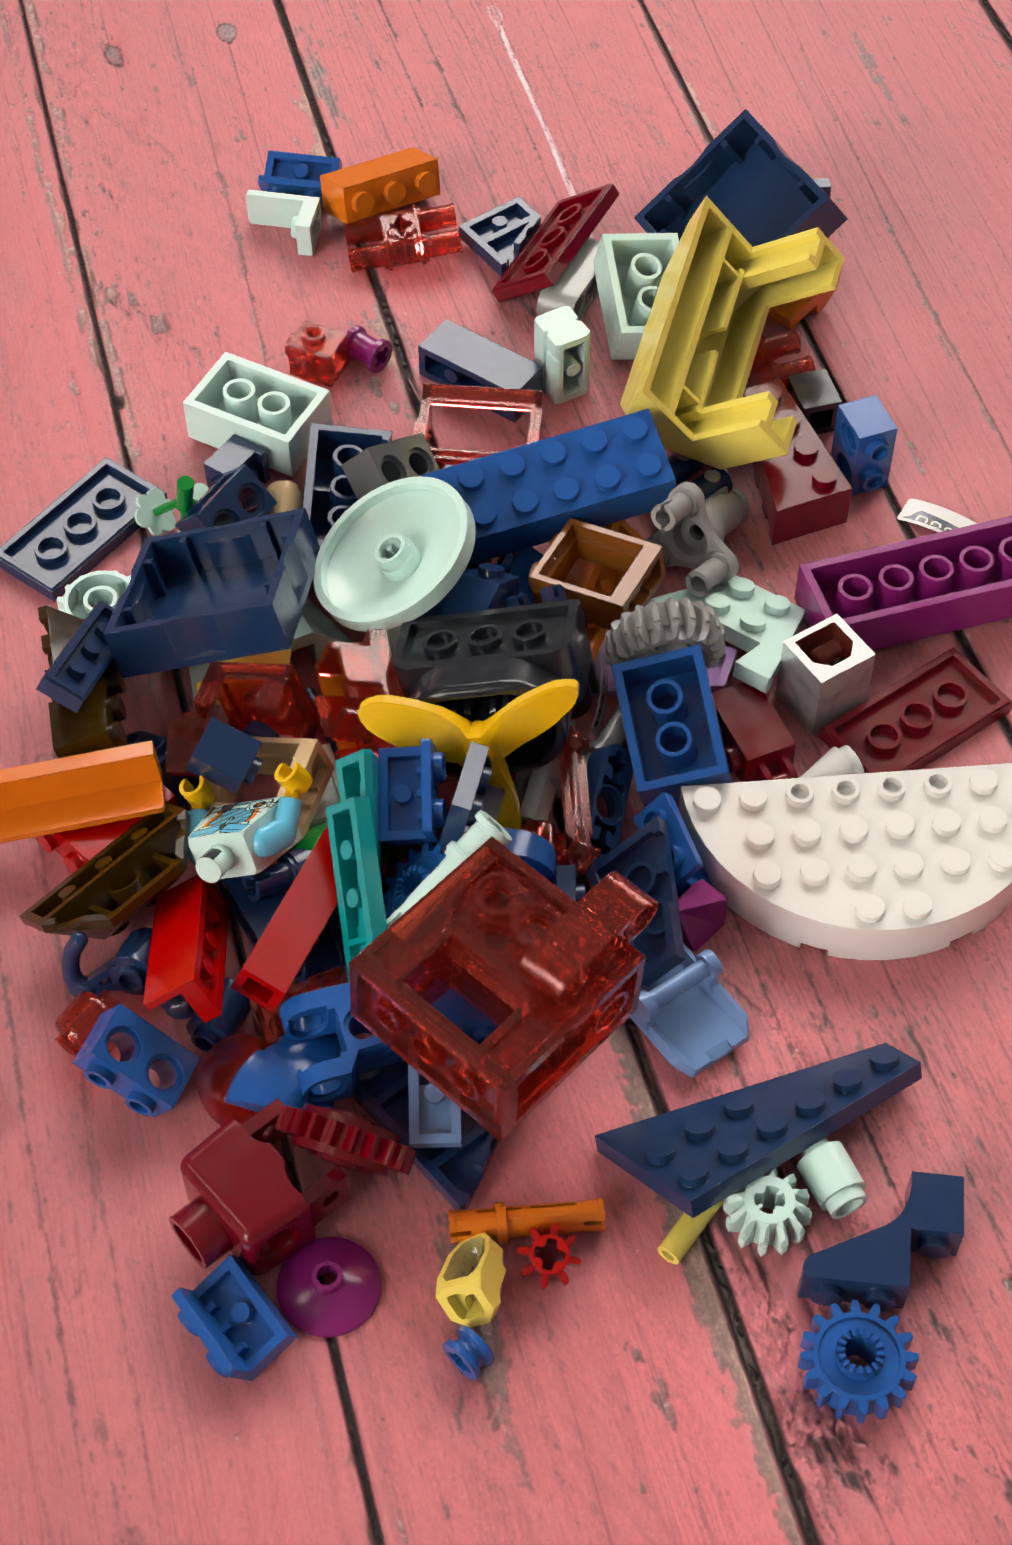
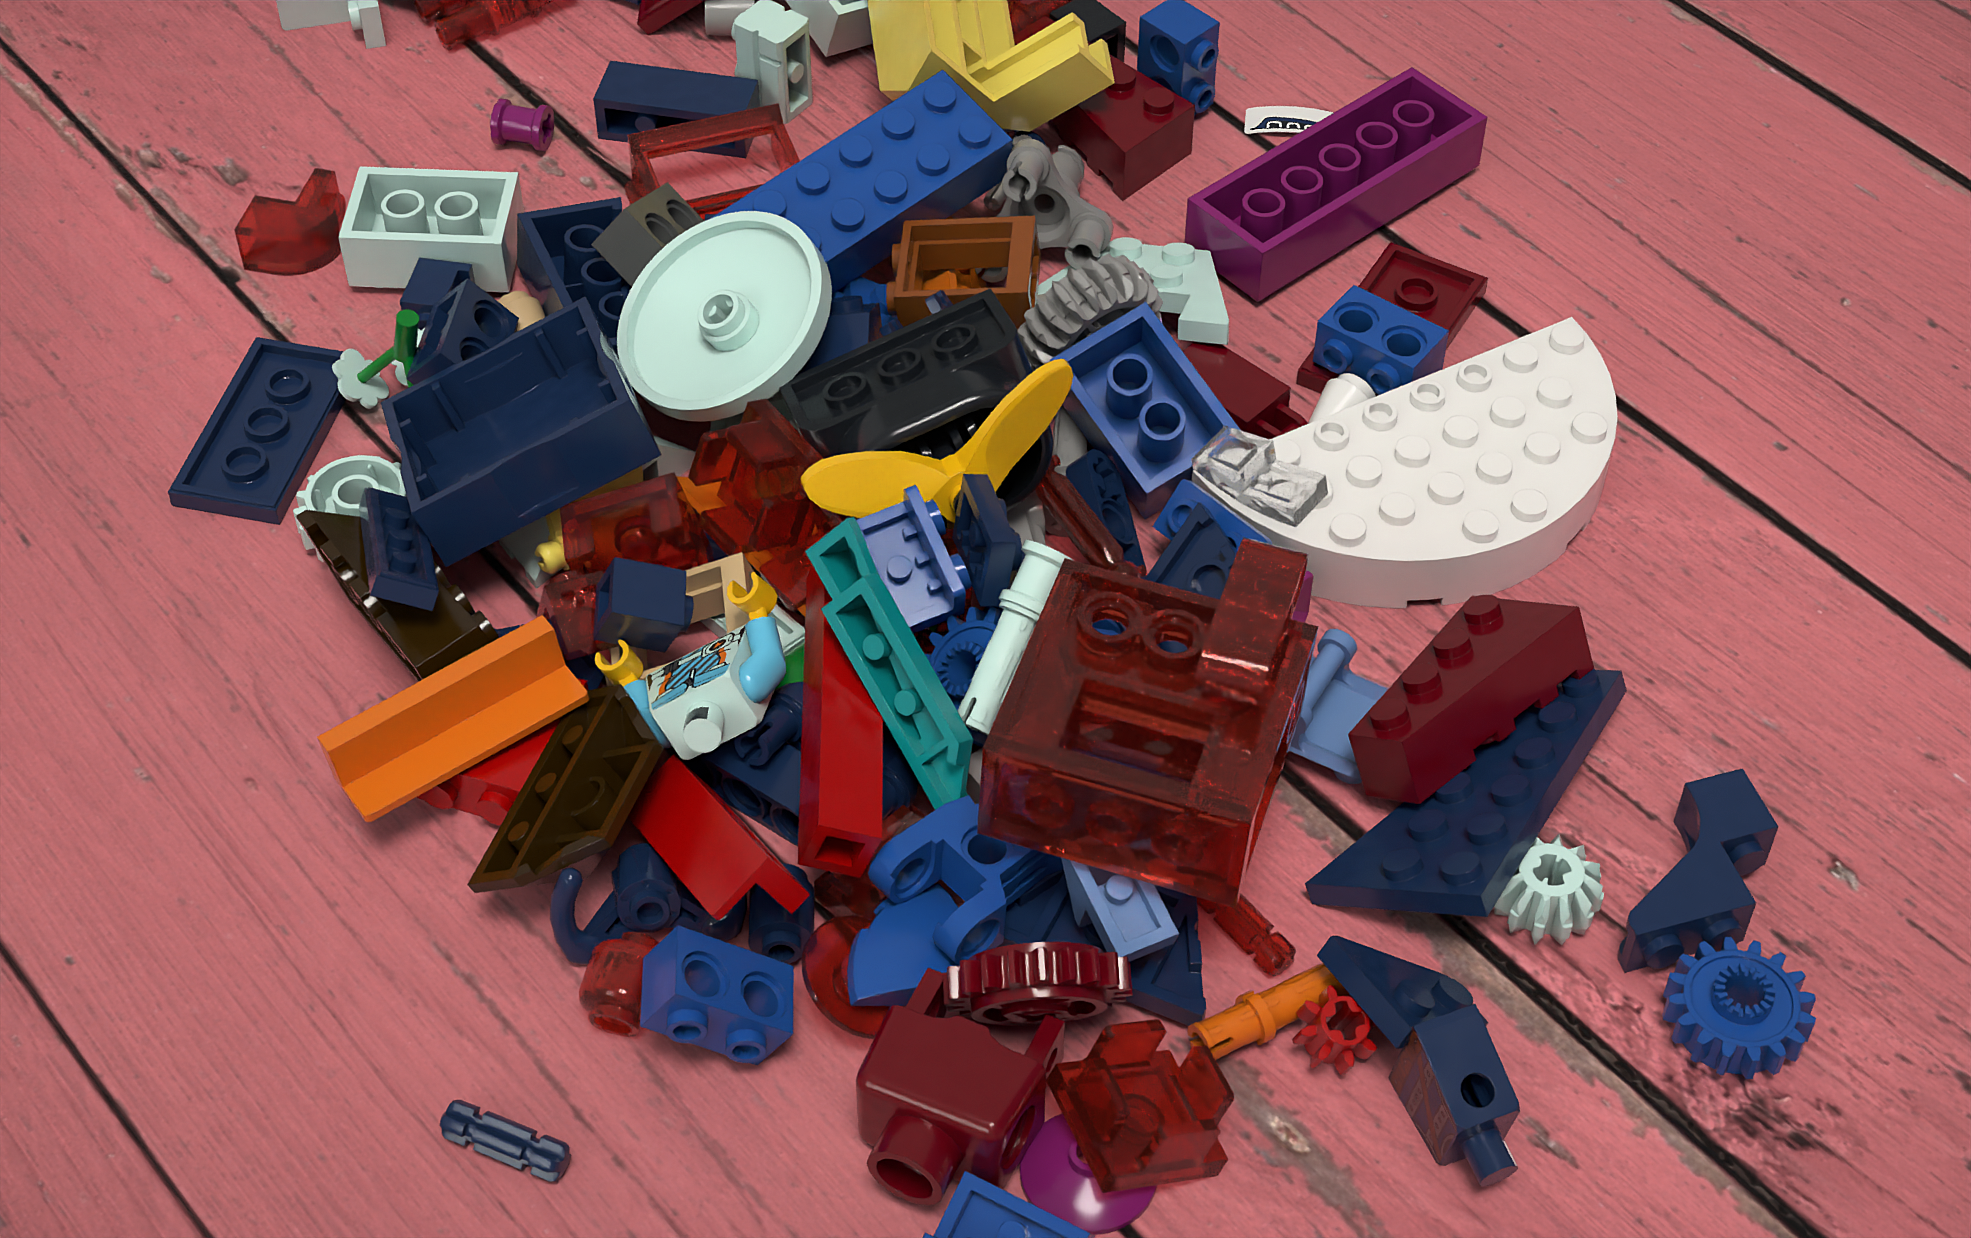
camera: 25 degrees left, 5 degrees down
(162, 385) = (291, 235): none -> clear red brick
(317, 353) = (466, 139): clear red brick -> none
(377, 1260) = (1141, 1112): none -> clear red panel
(468, 1352) = (1305, 1172): blue bush -> none
(472, 1281) = (1267, 1092): light yellow rock -> none
(537, 1154) = (1253, 934): none -> clear red axle
(606, 1253) = (1392, 989): none -> dark blue wing
(606, 1328) = (1458, 1093): none -> dark blue torso
(685, 1234) = (1467, 950): light yellow piece -> none
(718, 811) = (1251, 474): none -> clear slope
(784, 1036) = (1466, 693): none -> dark red wedge
(824, 673) = (1277, 303): flat silver piece -> none
(832, 1178) = (1599, 825): light aqua brick -> none
(884, 730) = (1378, 341): none -> blue brick

